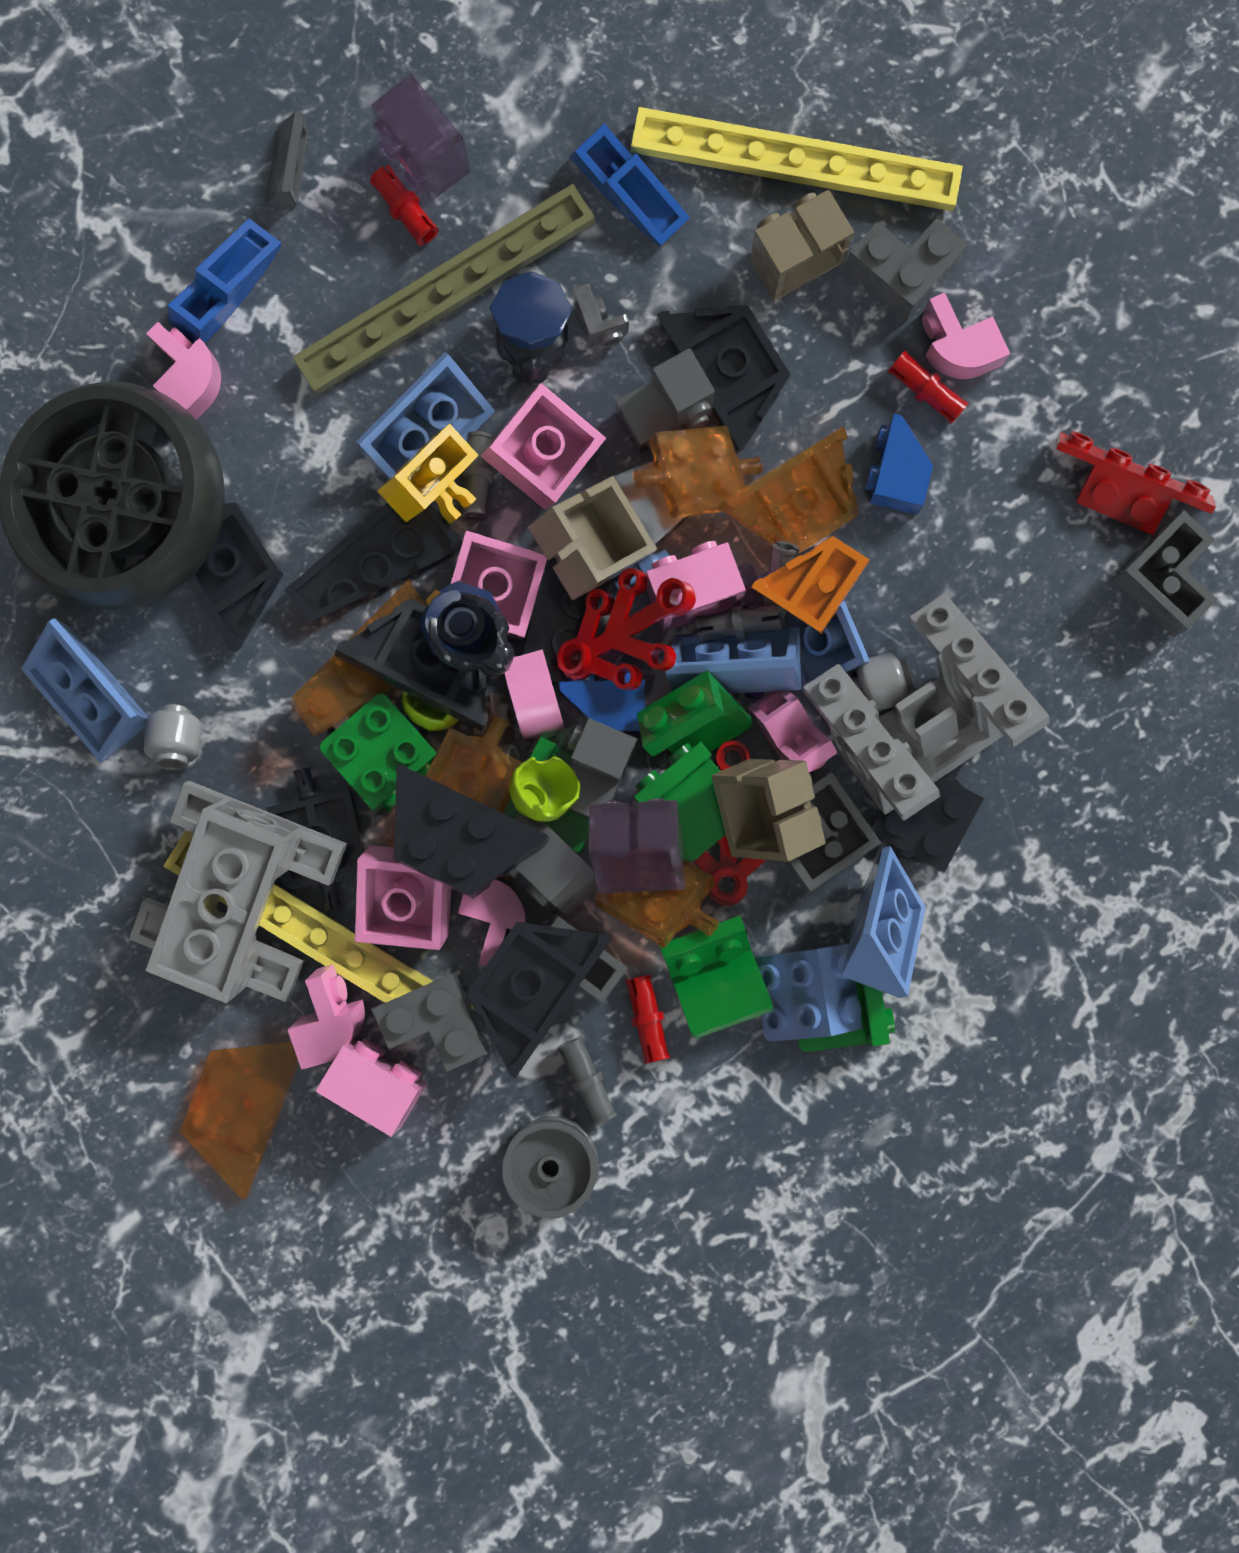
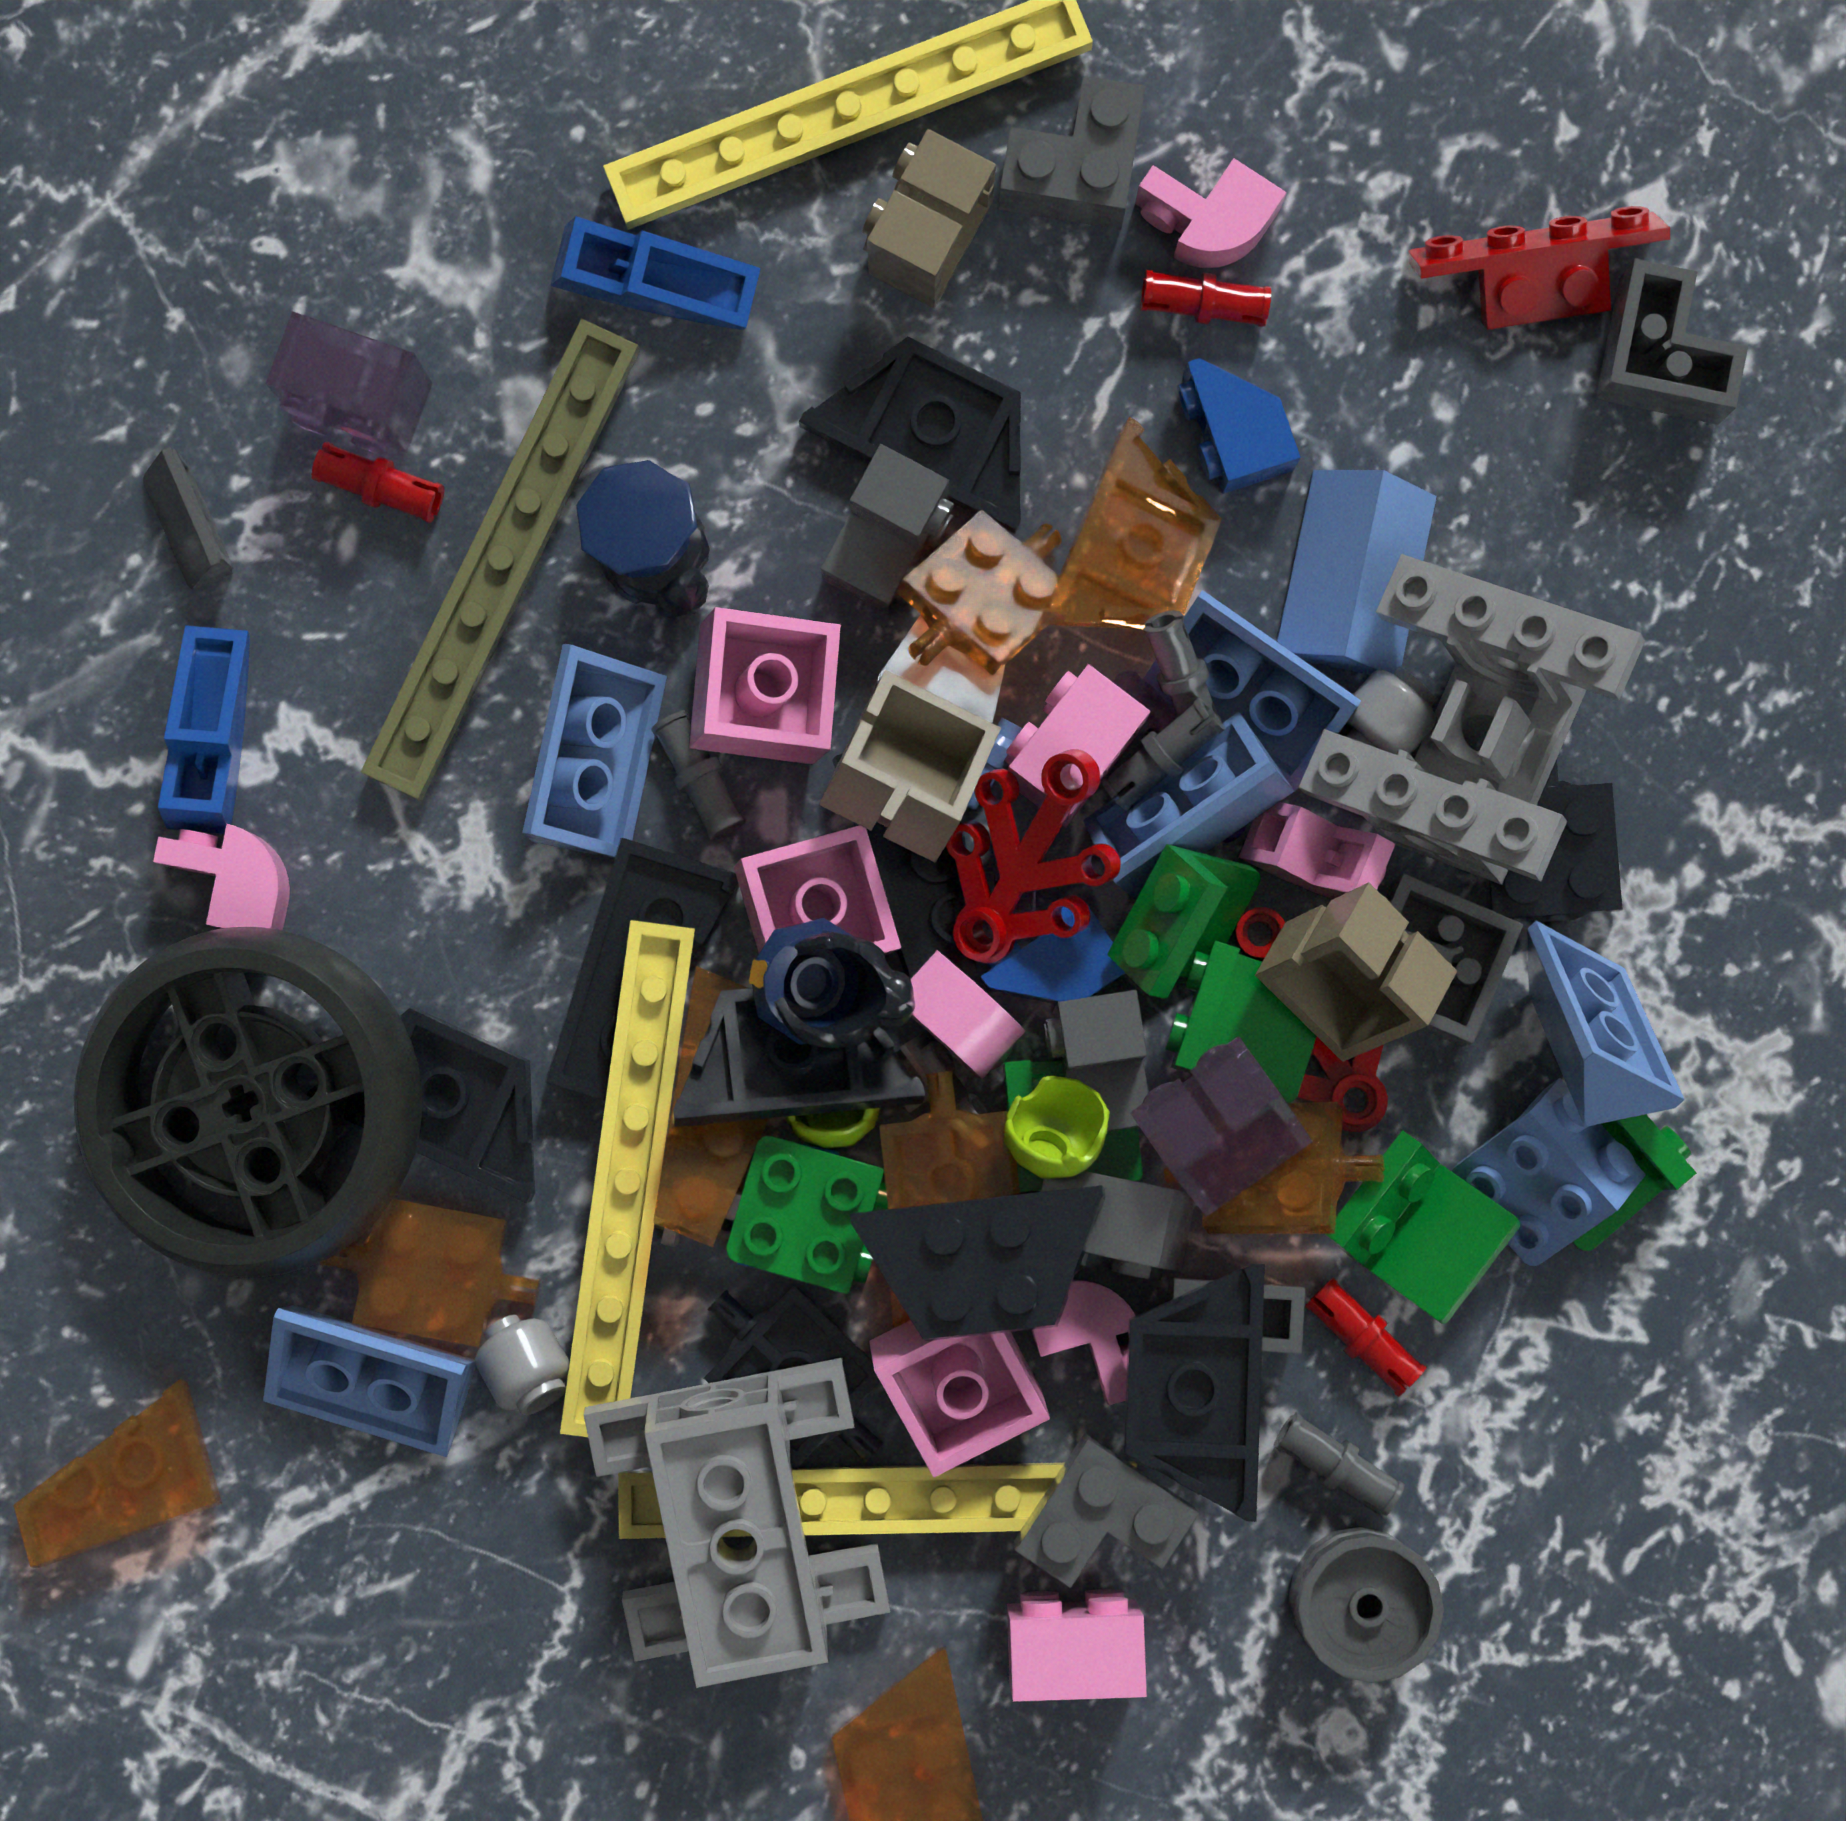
camera: 35 degrees left, 0 degrees up
(156, 656) = (432, 1273): none -> clear orange plate
(301, 658) = (628, 1169): none -> light yellow plate
(322, 1034) = (973, 1607): bright pink brick -> none
(431, 477) = (648, 817): yellow brick -> none
(591, 313) = (713, 474): flat silver bracket -> none
(814, 582) = (1231, 645): orange wing -> none
(915, 576) = (1342, 564): none -> medium blue slope

